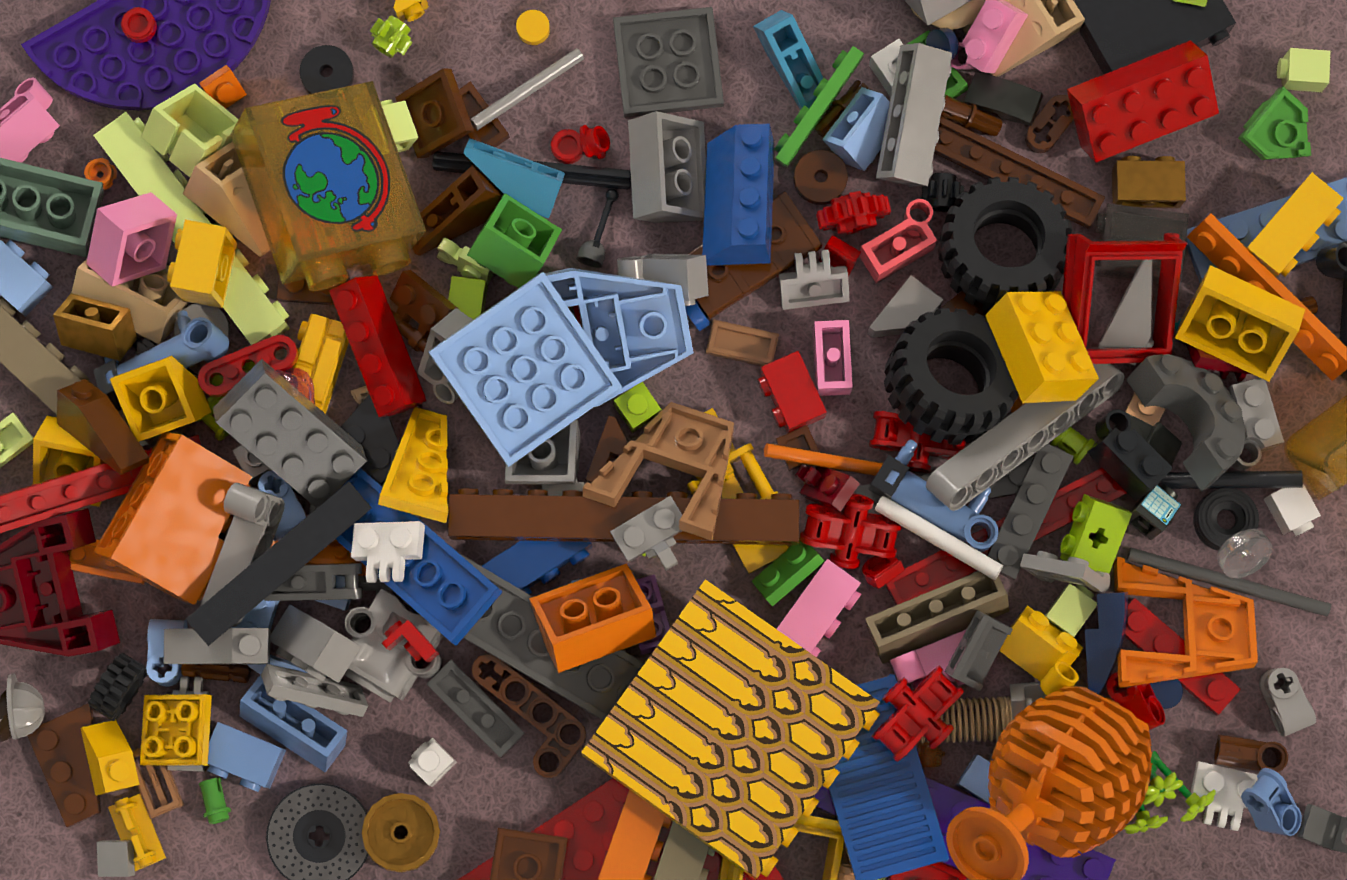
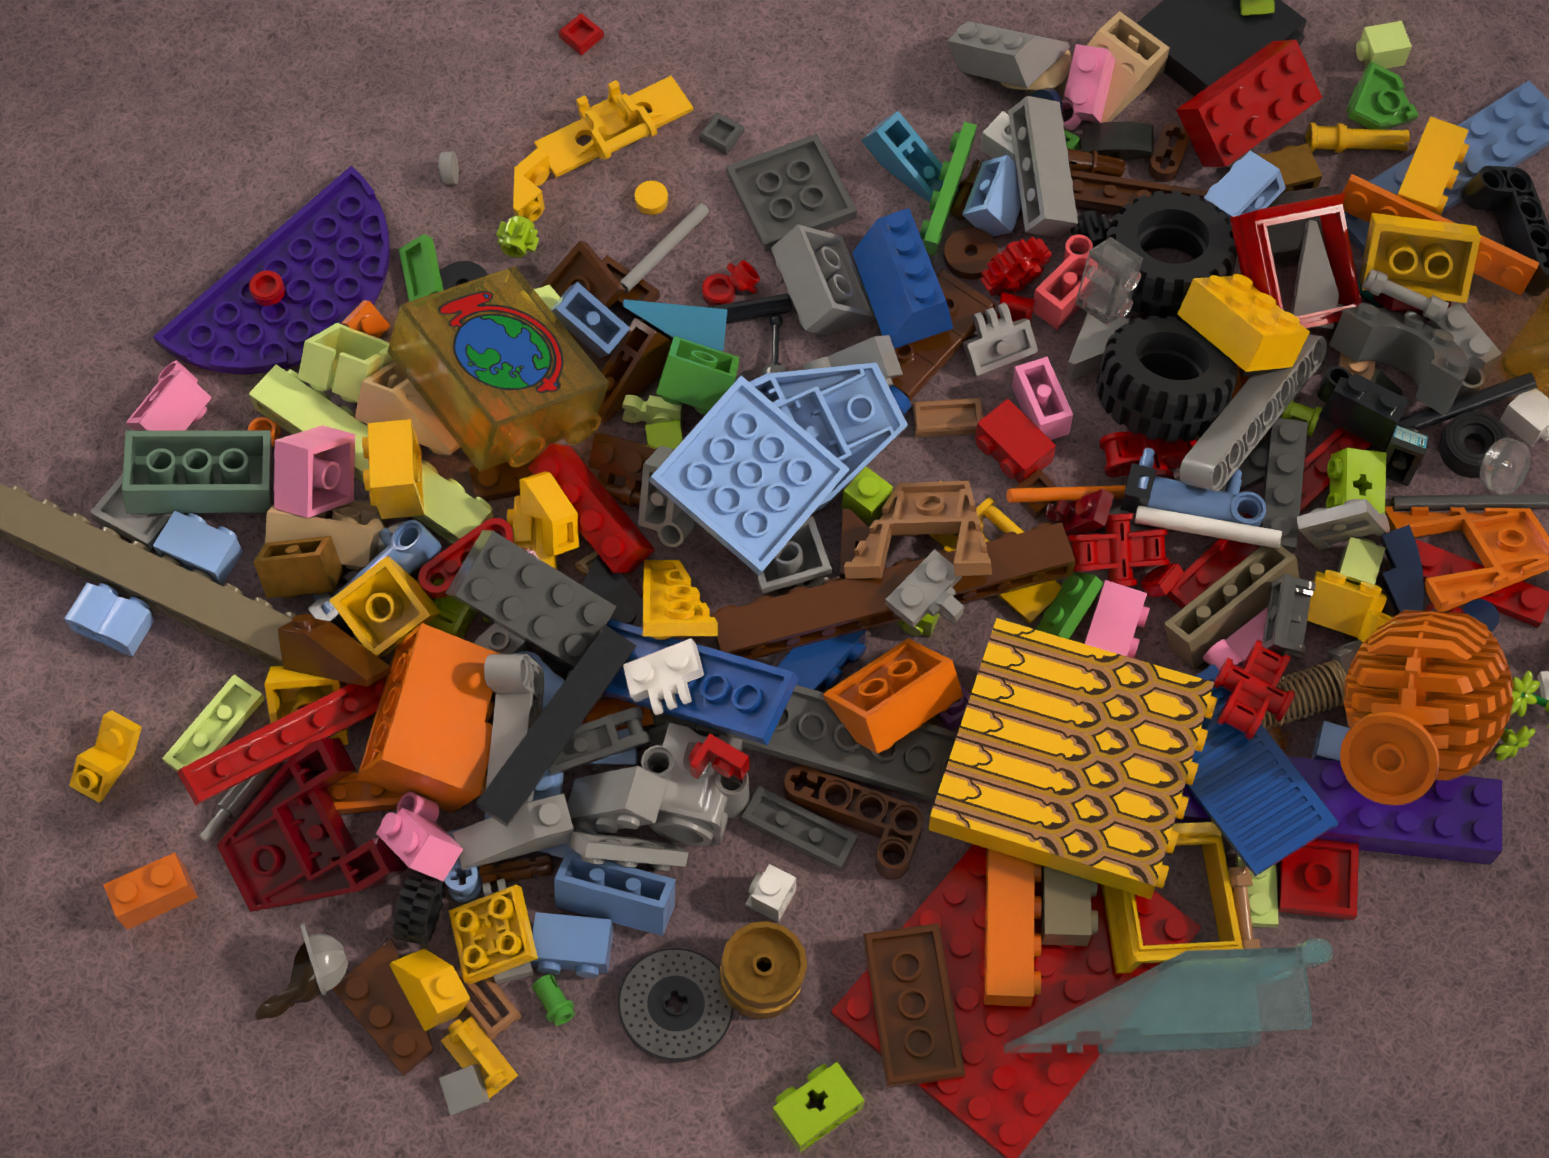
camera: 15 degrees left, 15 degrees down
(133, 625) = (418, 837): none -> bright pink hinge
(290, 46) = (420, 268): none -> bright green tile
(334, 336) = (545, 500): none -> yellow slope
(428, 156) = (589, 320): none -> medium blue brick
(931, 263) = (1109, 281): none -> clear brick
(1099, 200) = (1247, 186): none -> light blue brick
(1225, 158) = (1341, 137): none -> yellow pin
(1233, 379) = (1432, 307): none -> light grey bar

